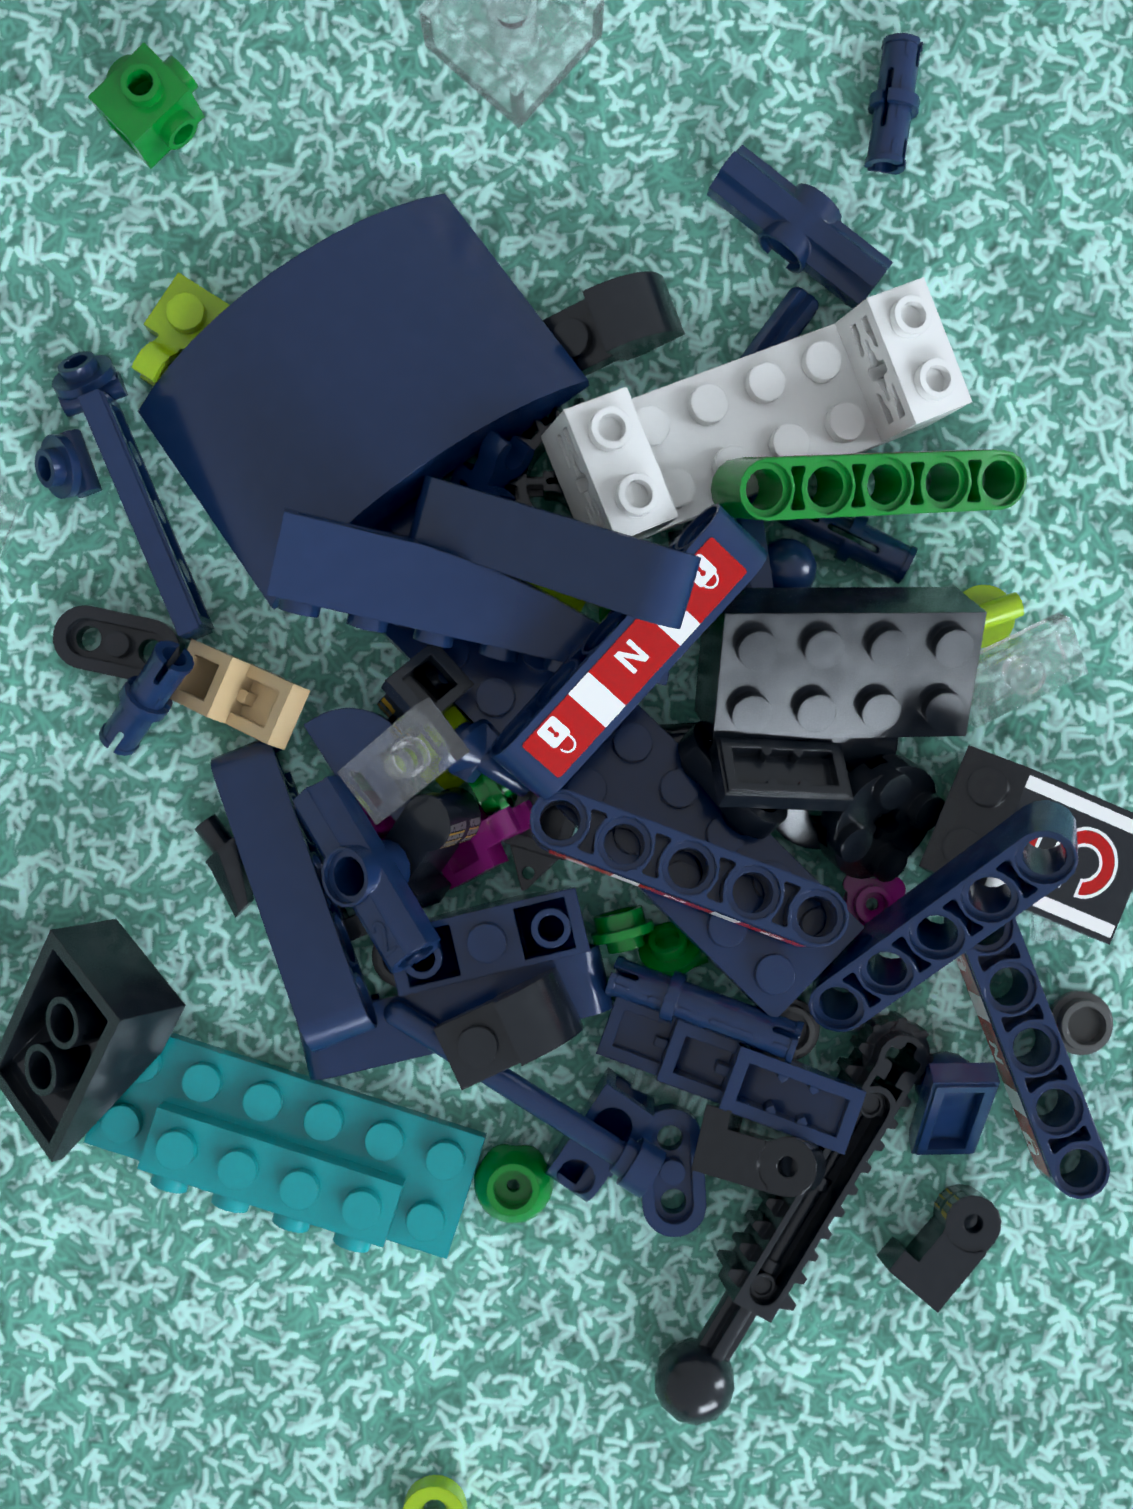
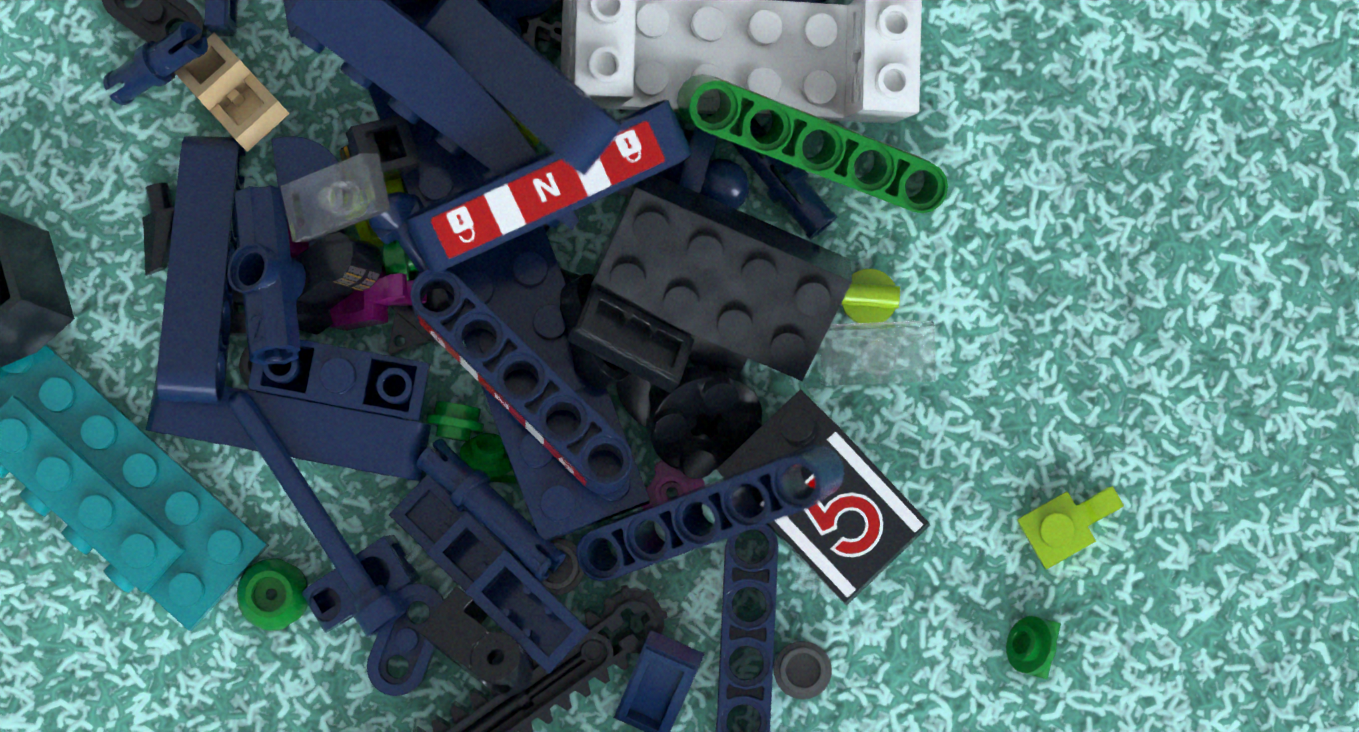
camera: 30 degrees right, 5 degrees down
(509, 1029) = (325, 450): black brick -> none

